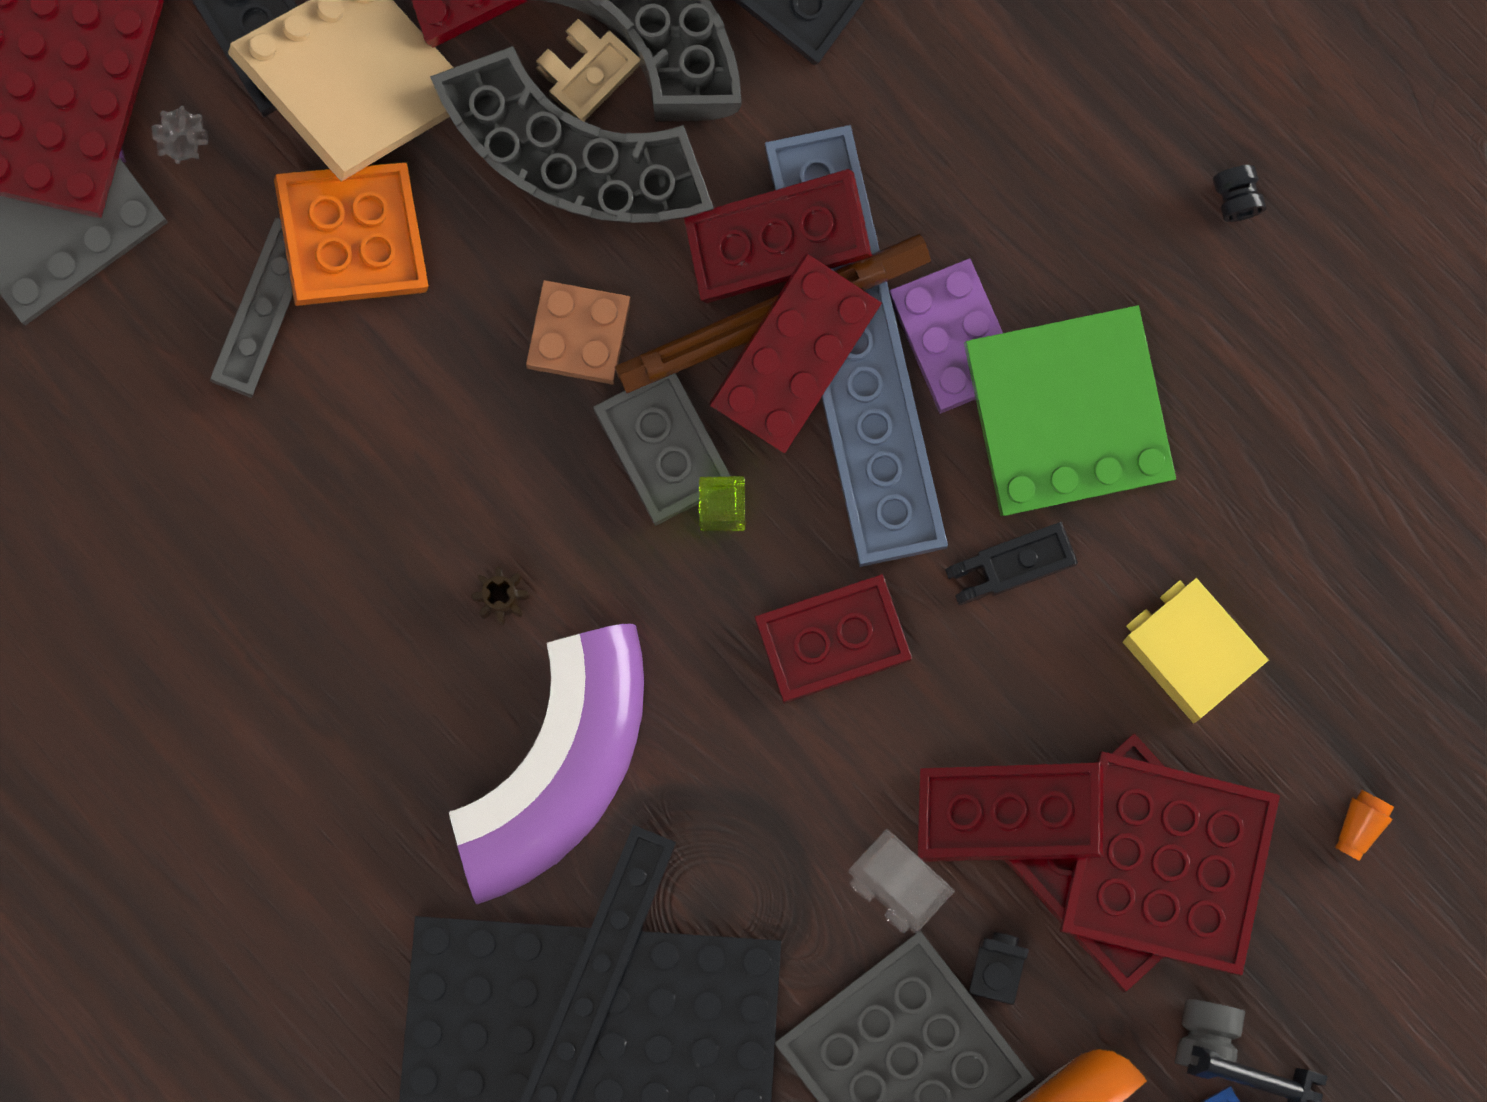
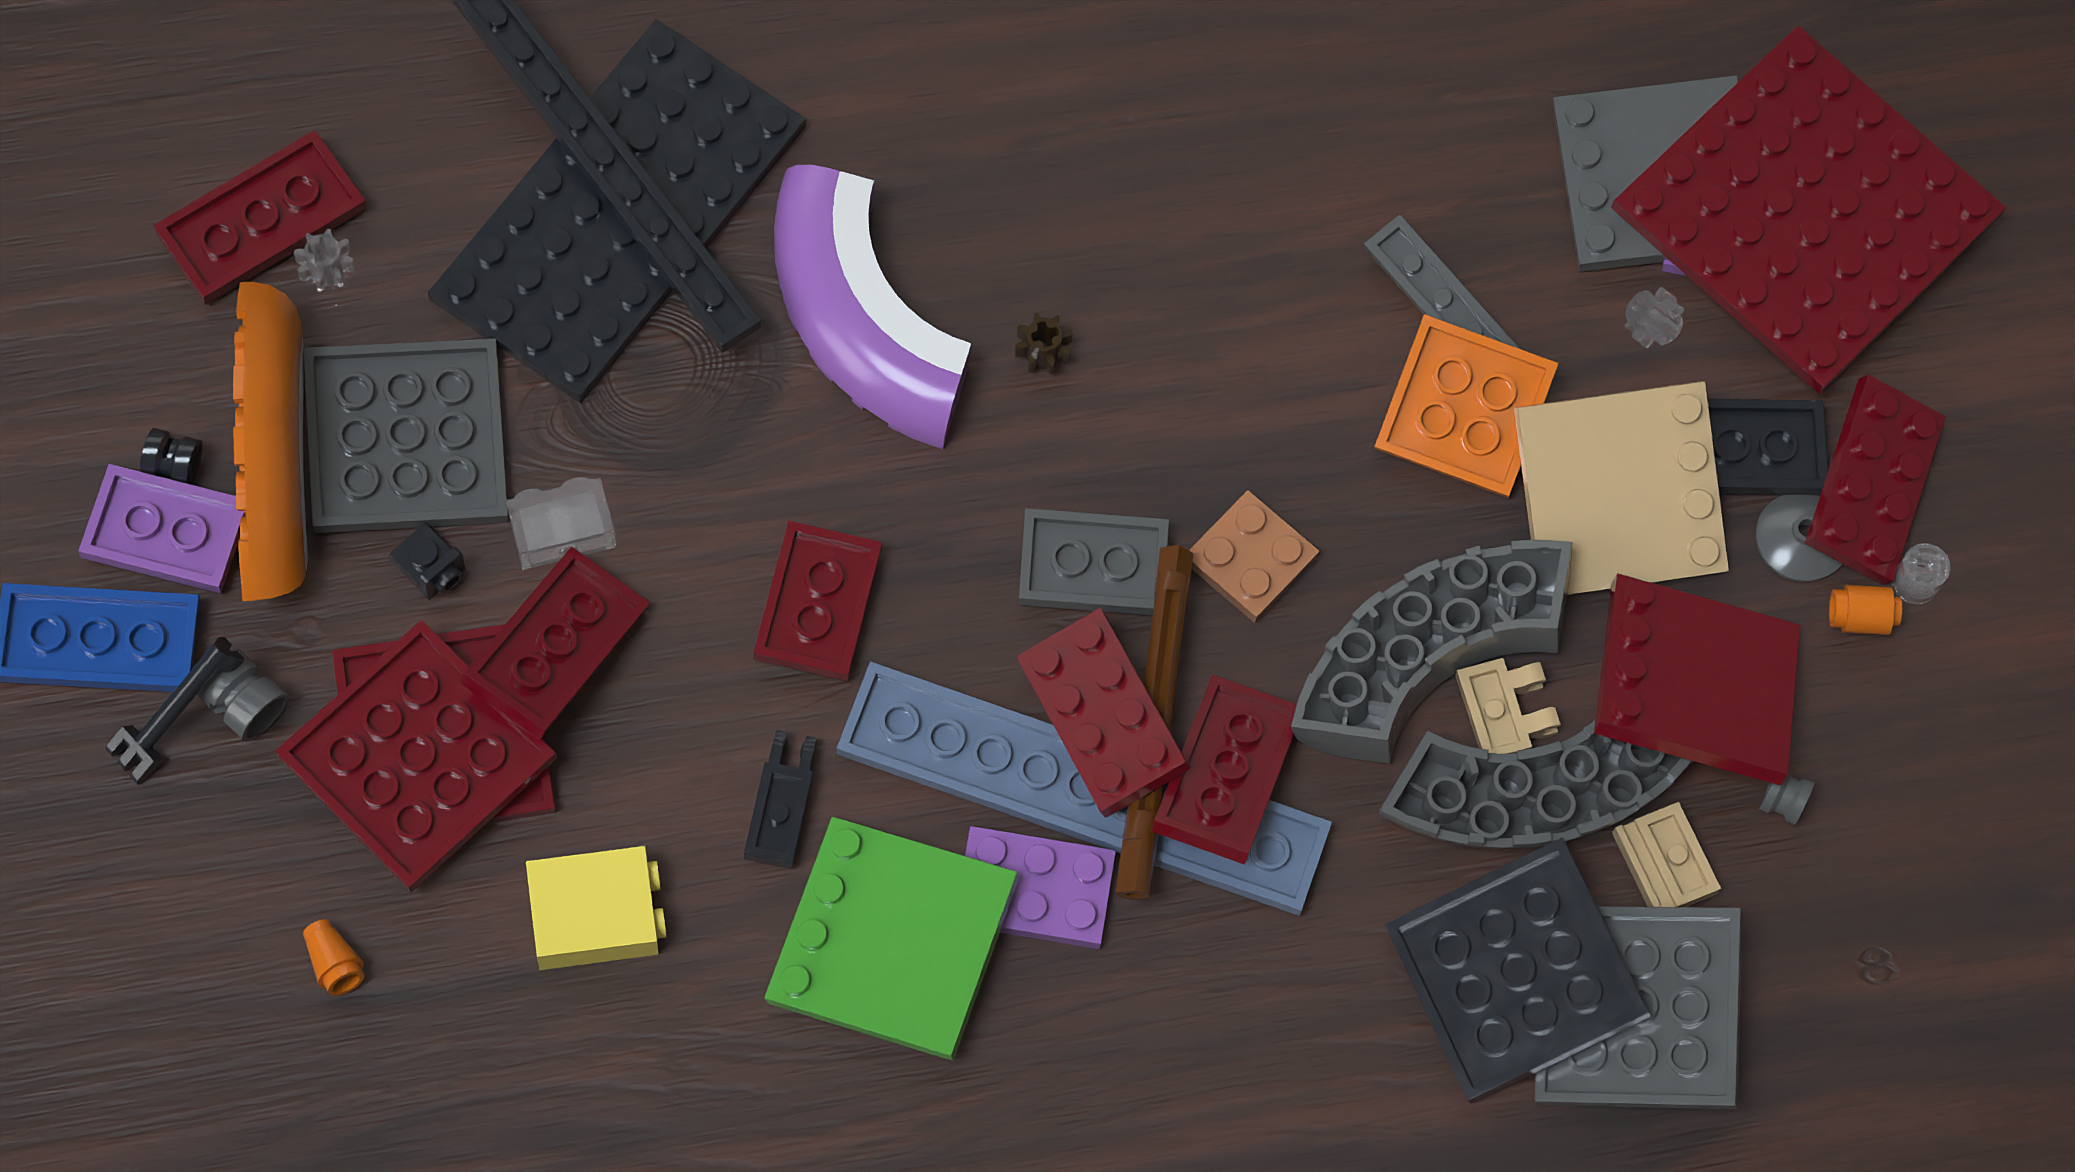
camera: 115 degrees right, 10 degrees down
(722, 503) = (1003, 575): clear neon green panel -> none

